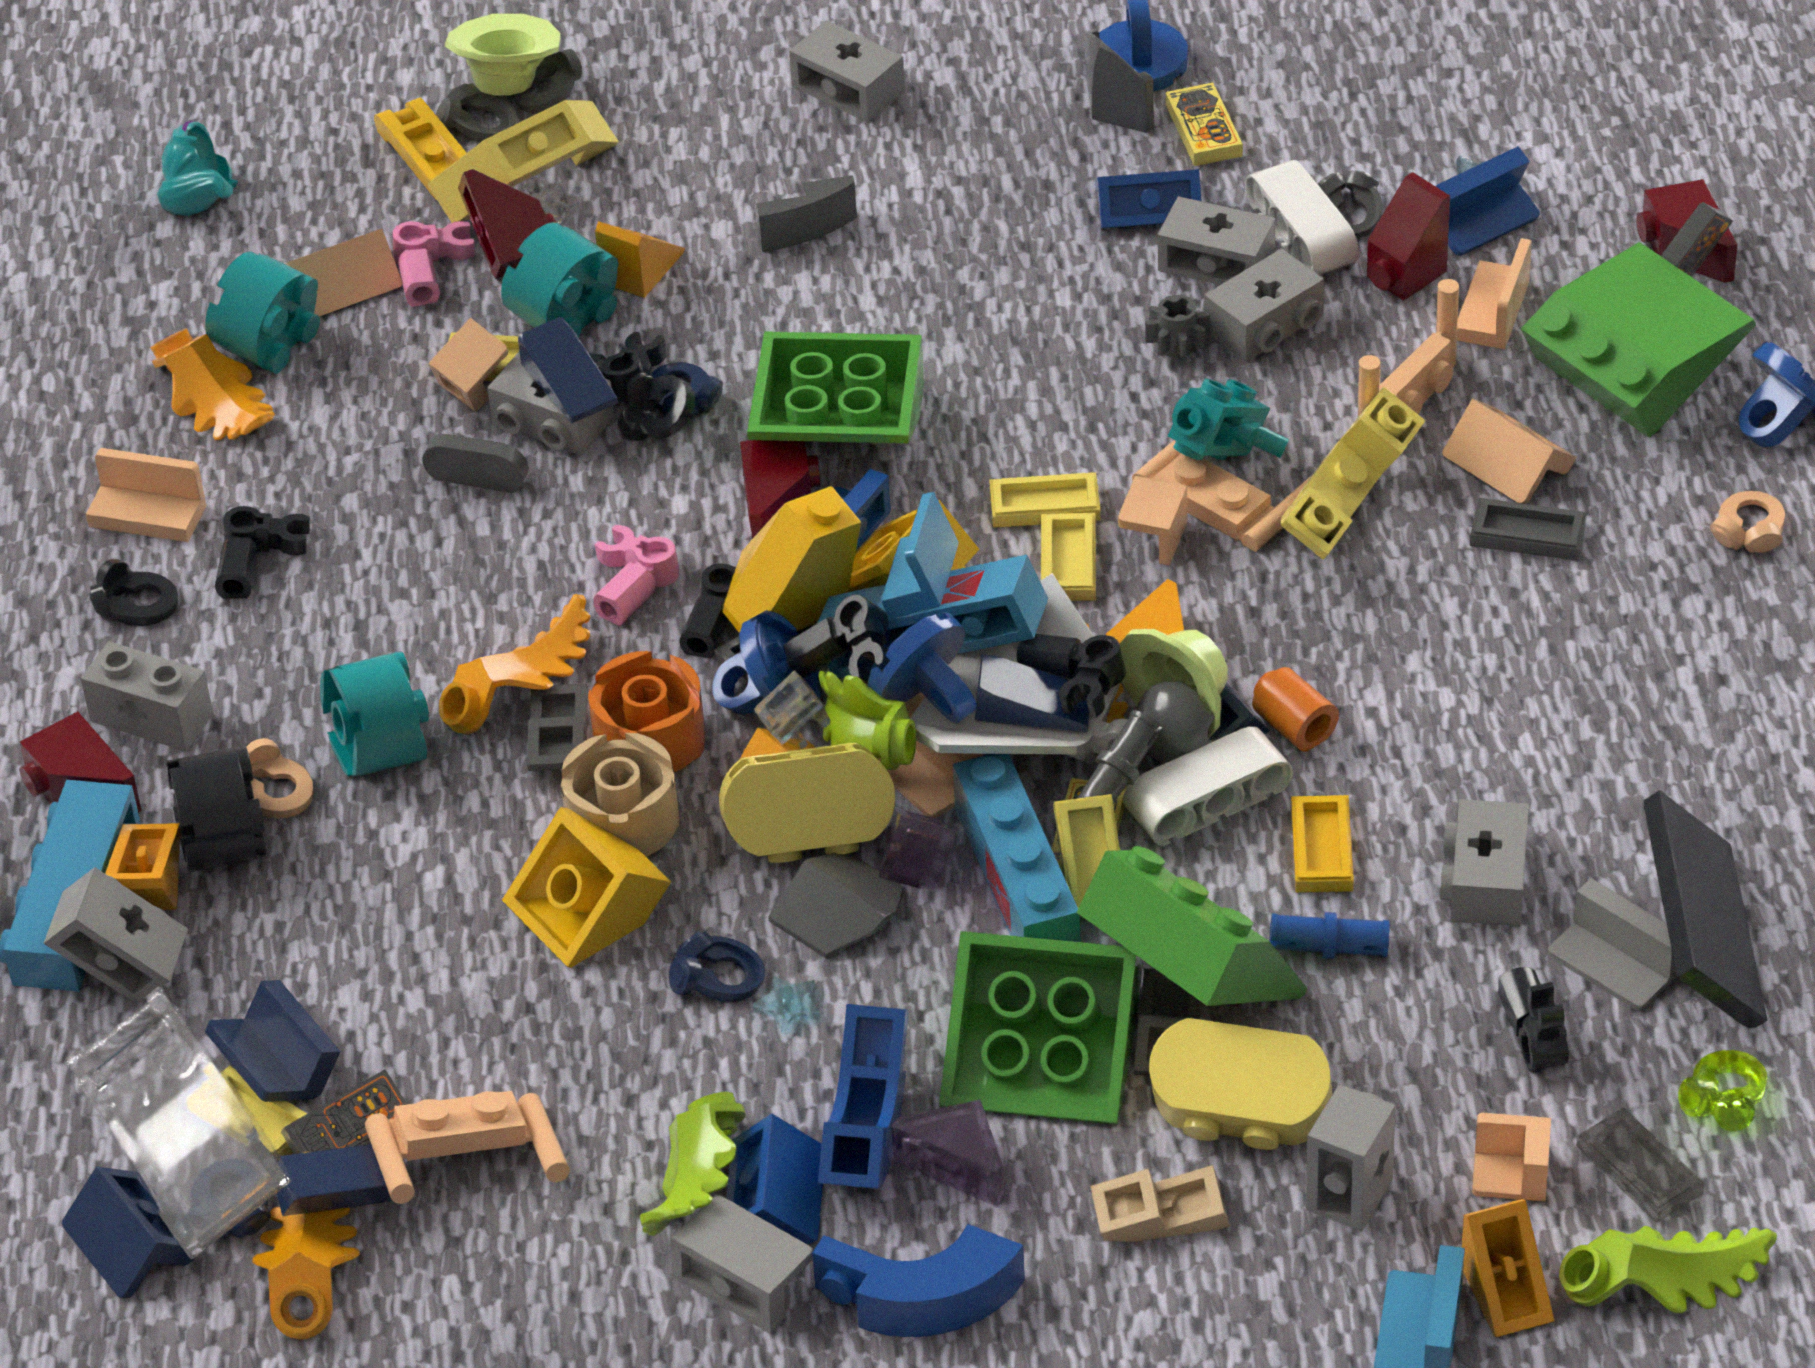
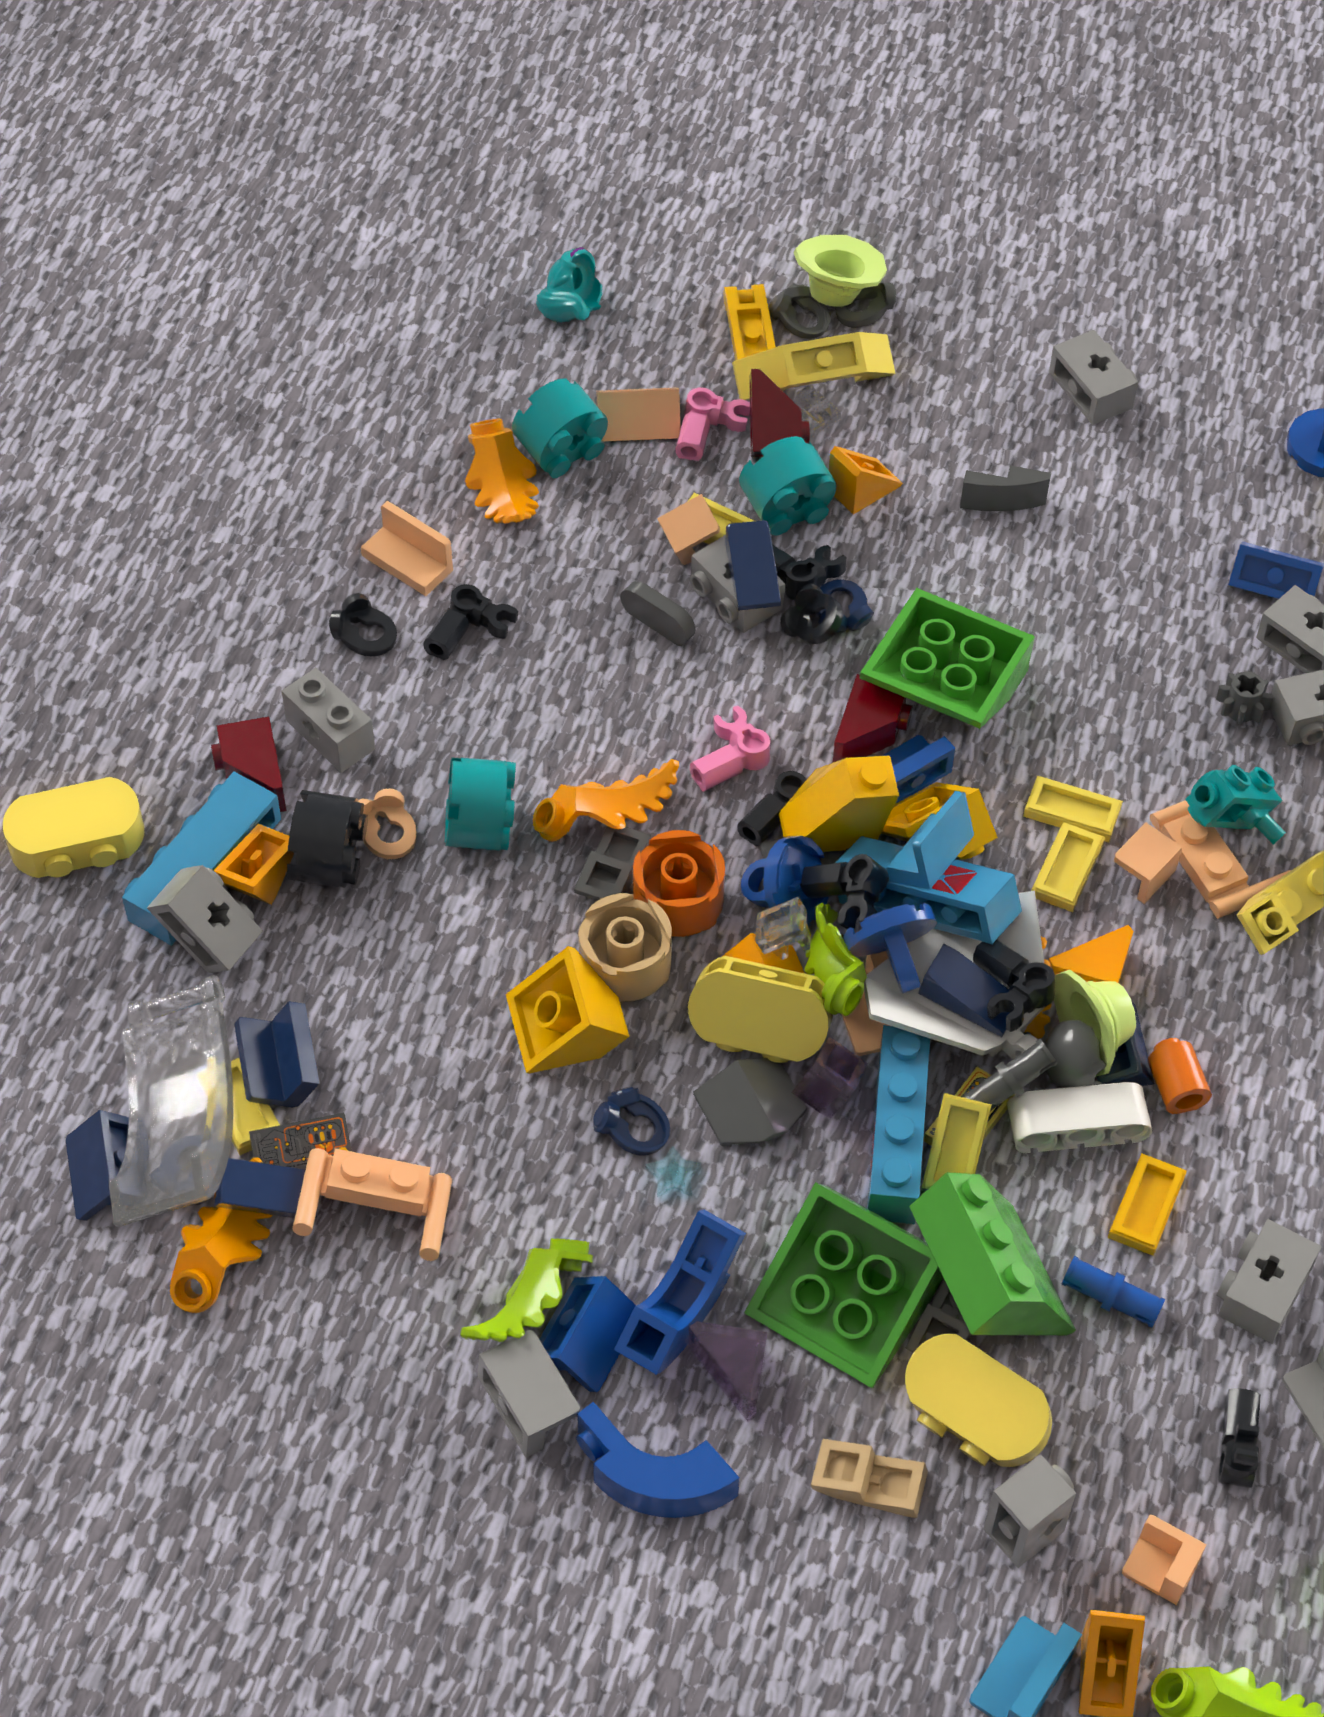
camera: 20 degrees right, 10 degrees up
(1116, 89) = (1291, 471): dark grey slope -> none
(1640, 1165) = (1266, 1607): clear smoke tile -> none

